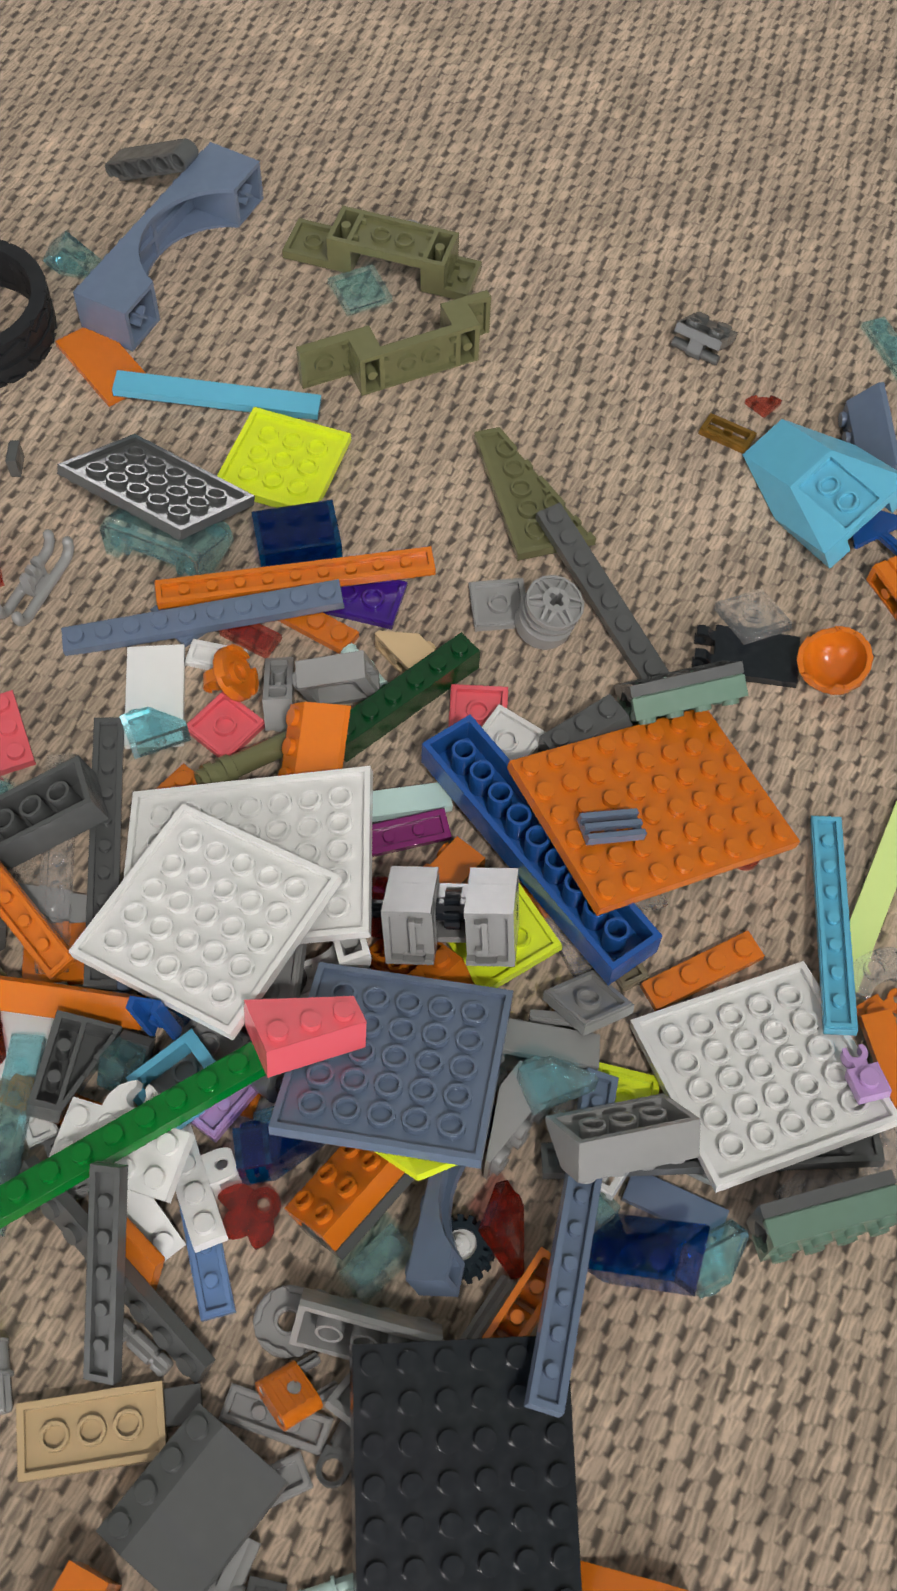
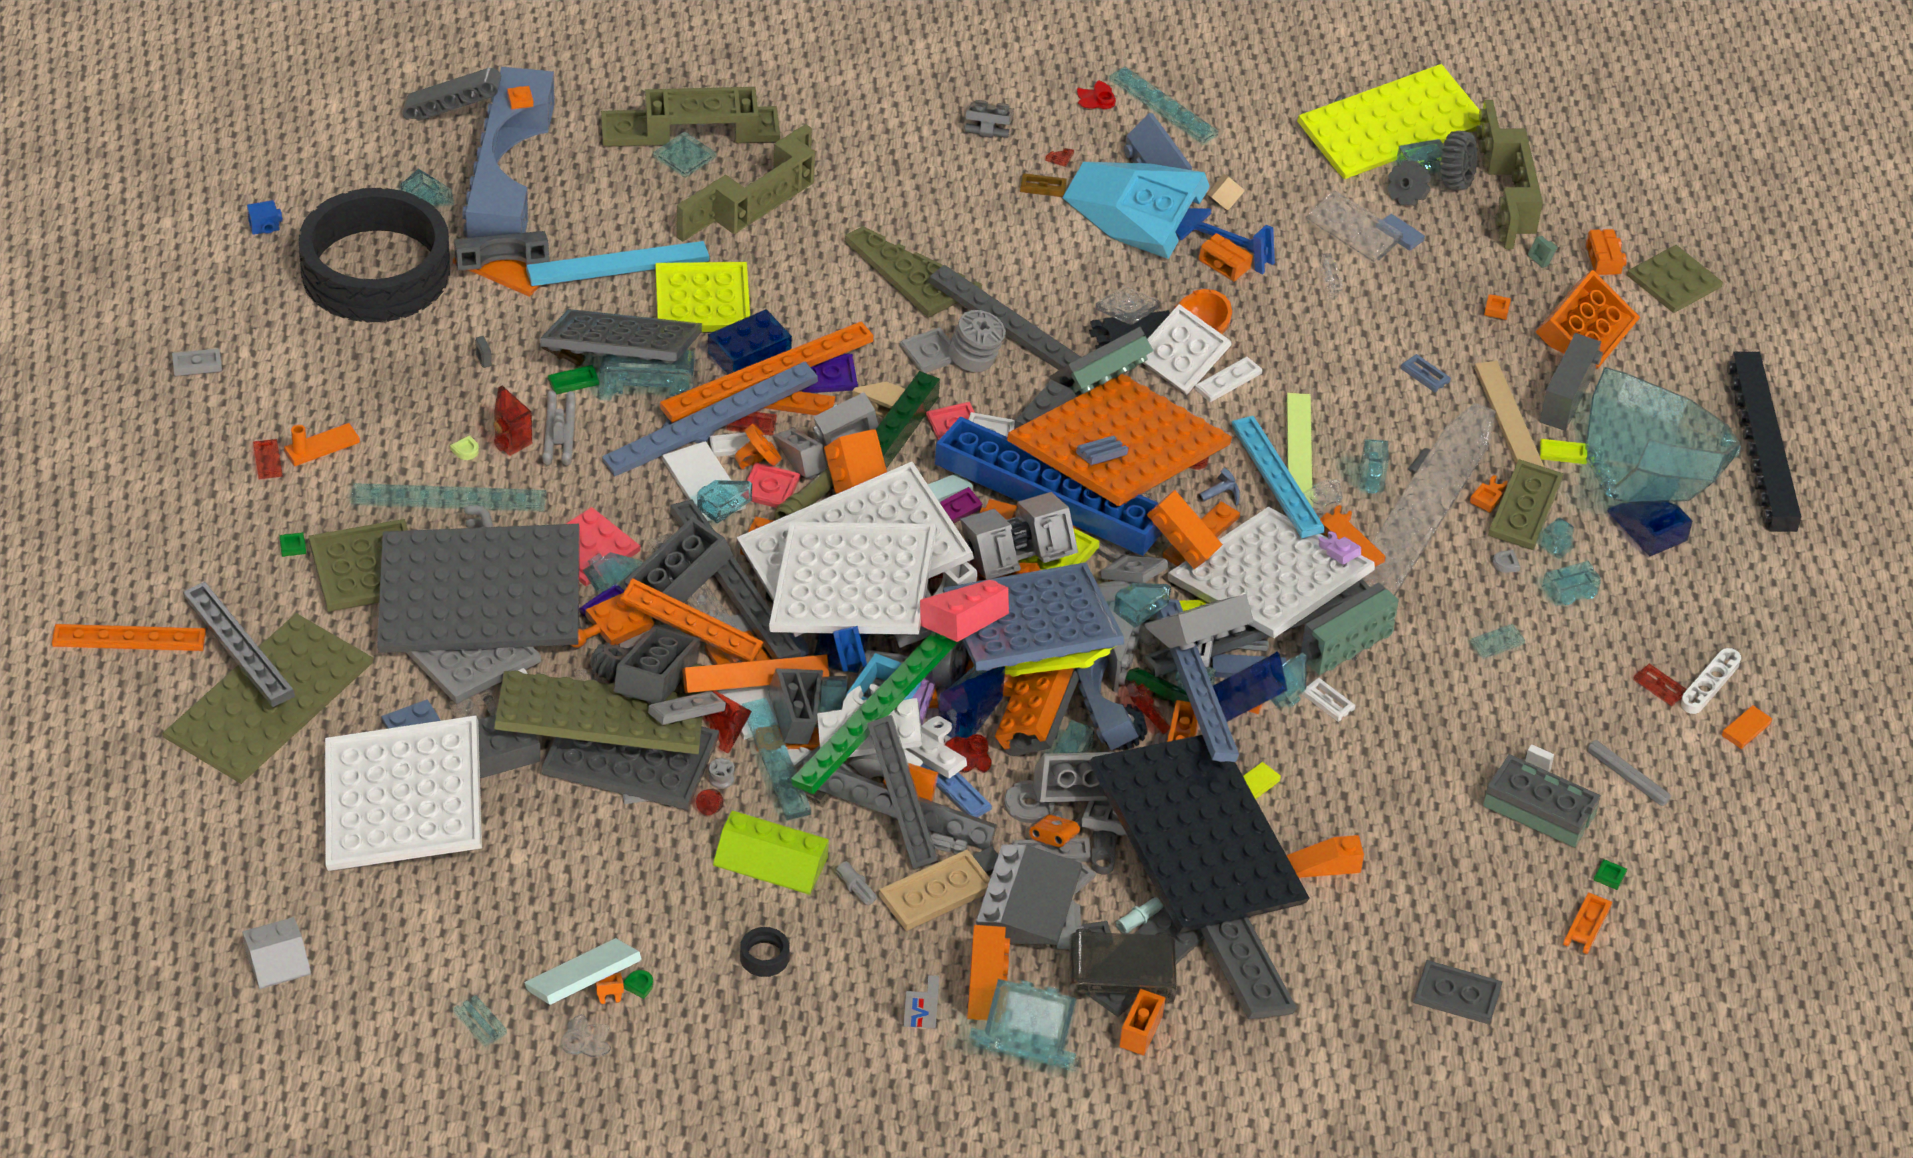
camera: 25 degrees left, 15 degrees down
(74, 340) = (478, 251): none -> dark grey arch
(85, 519) = (573, 379): none -> green tile
(205, 179) = (520, 97): none -> orange plate
(536, 1193) = (1162, 689): none -> dark green plate
(601, 1409) = (1261, 779): none -> neon yellow tile
(668, 977) = (1184, 529): none -> orange brick
(765, 908) = (1227, 483): none -> sand blue plant
(771, 1294) = (1326, 702): none -> white tile
(792, 699) = (1184, 349): none -> white plate
(833, 753) = (1228, 379): none -> white tile
(840, 345) = (1100, 97): none -> red plate

